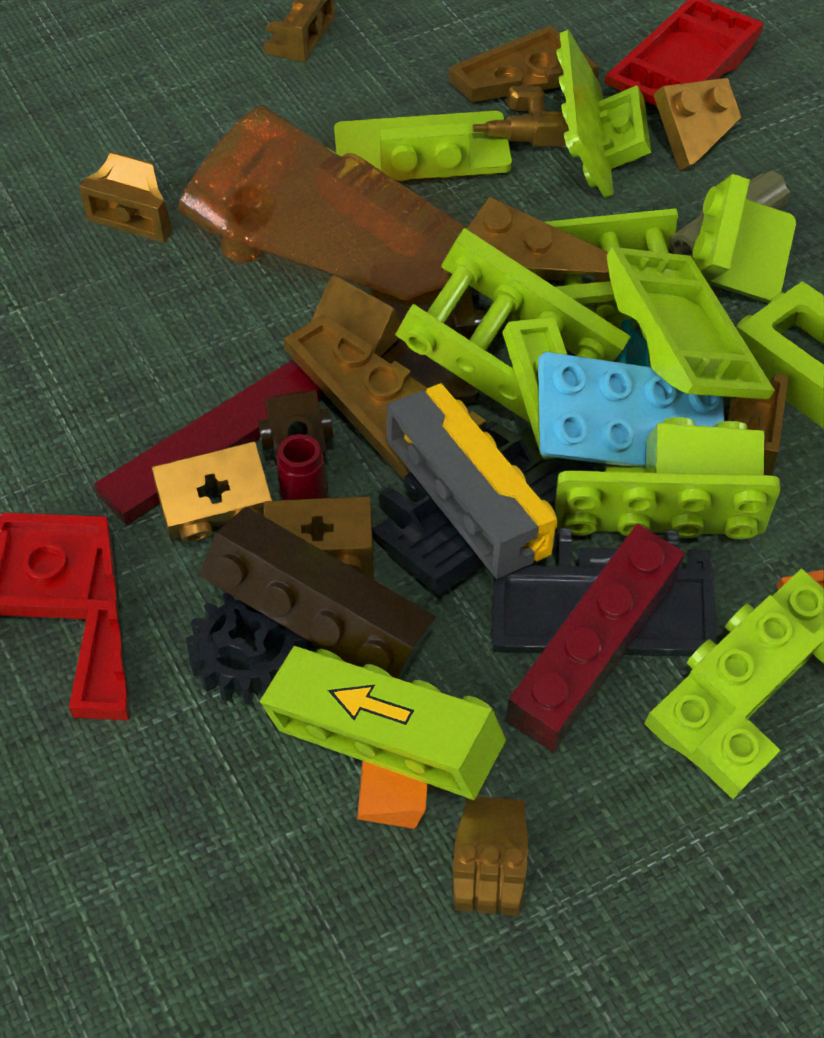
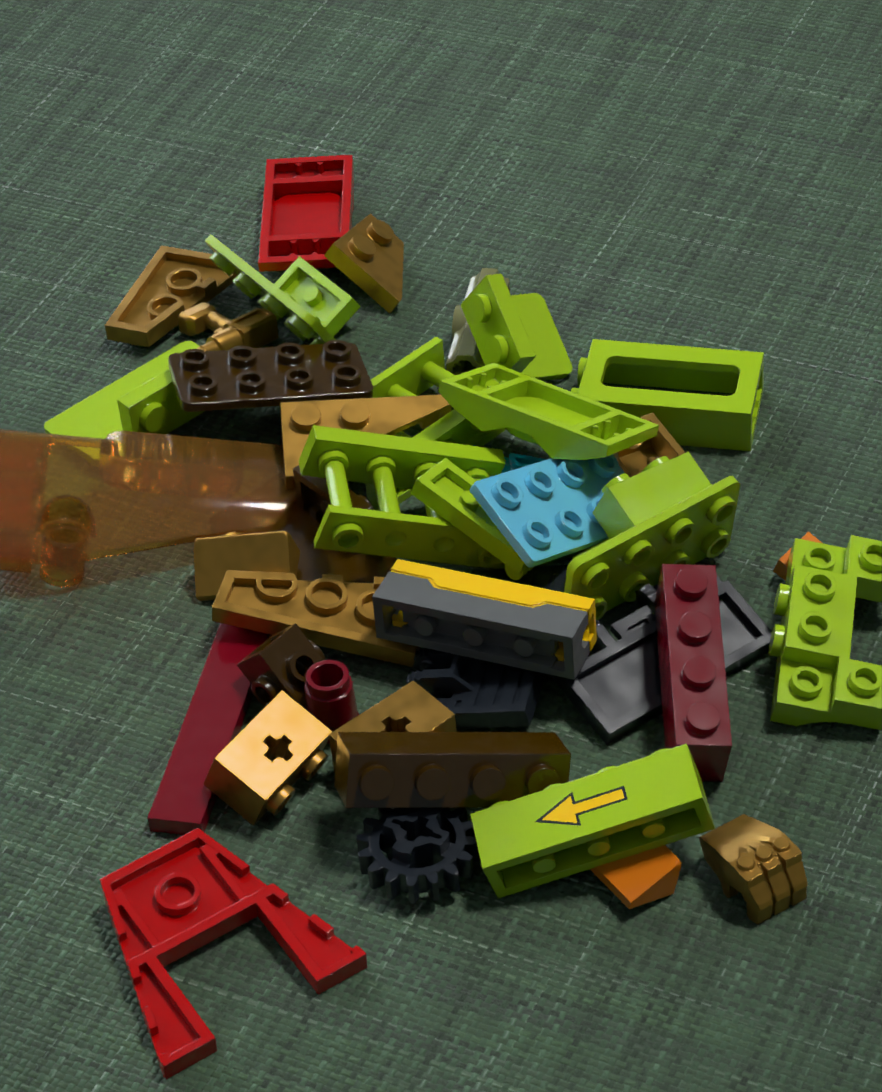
camera: 35 degrees left, 10 degrees down
(507, 171) = (268, 375): none -> dark brown bracket

